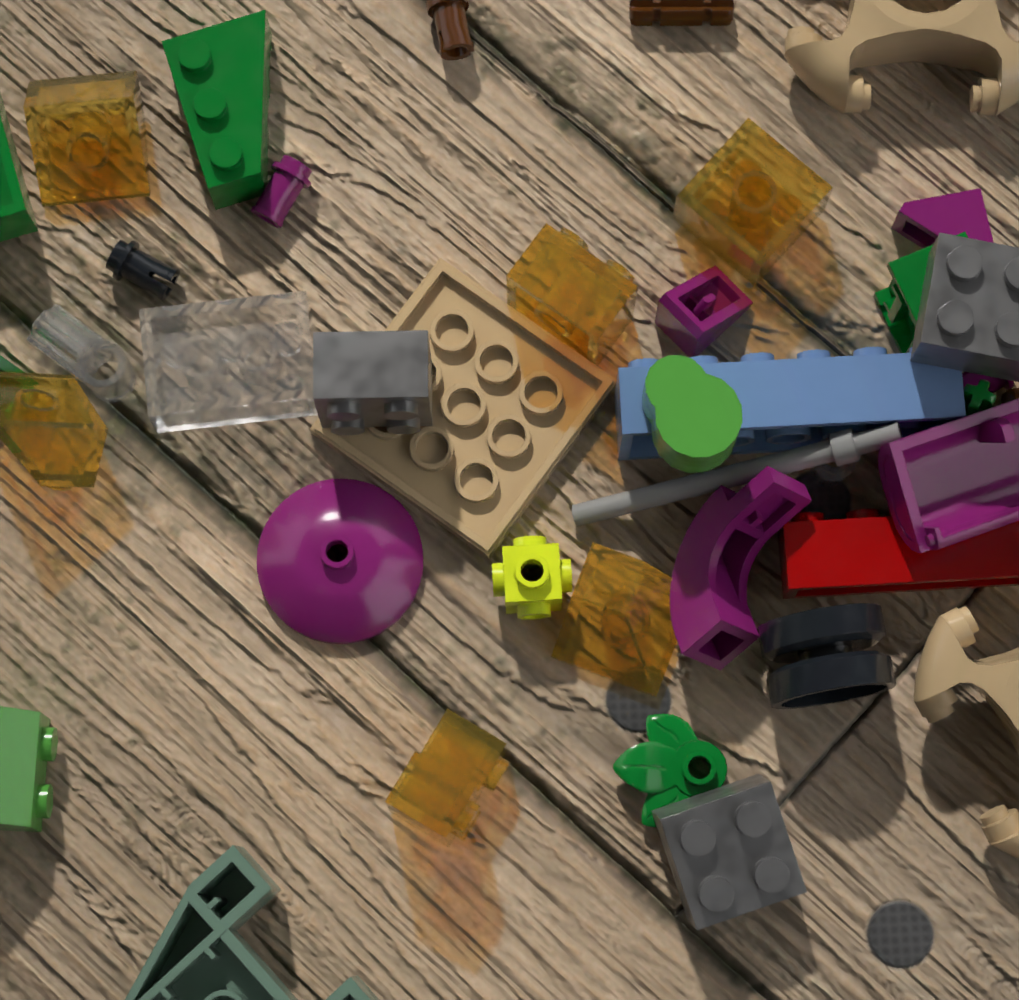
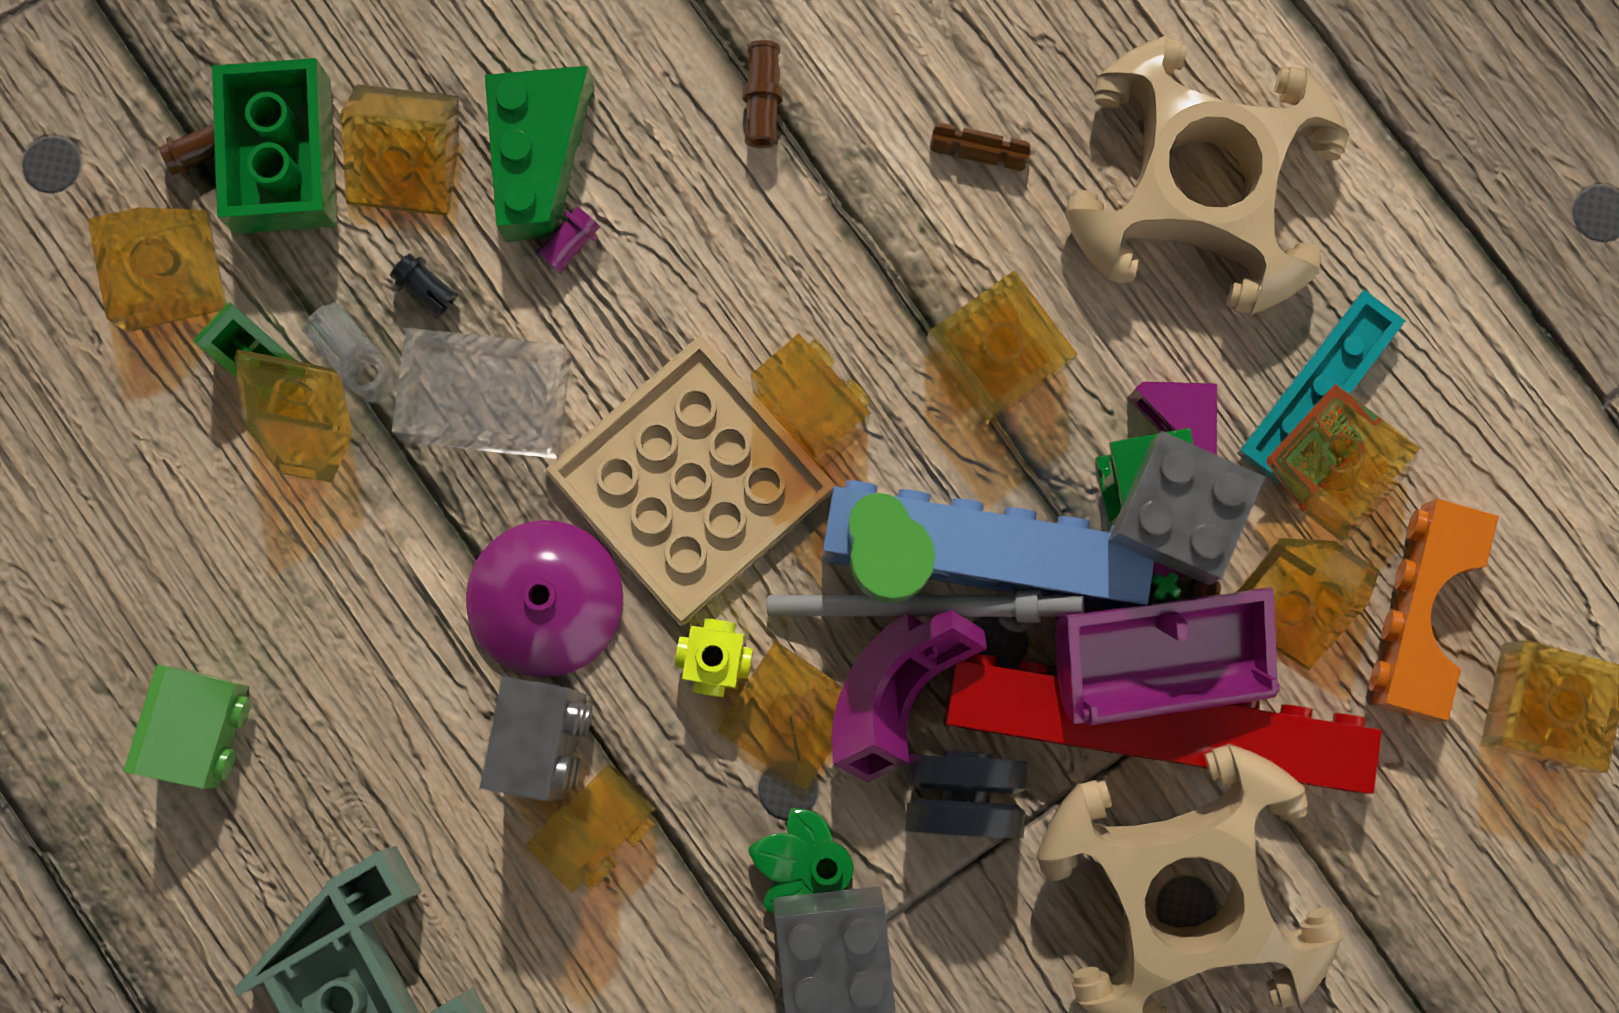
camera: 10 degrees right, 5 degrees up
(367, 693) = (535, 740): none -> flat silver brick
(372, 380) = (606, 444): flat silver brick -> none
(700, 310) = (931, 438): magenta slope -> none

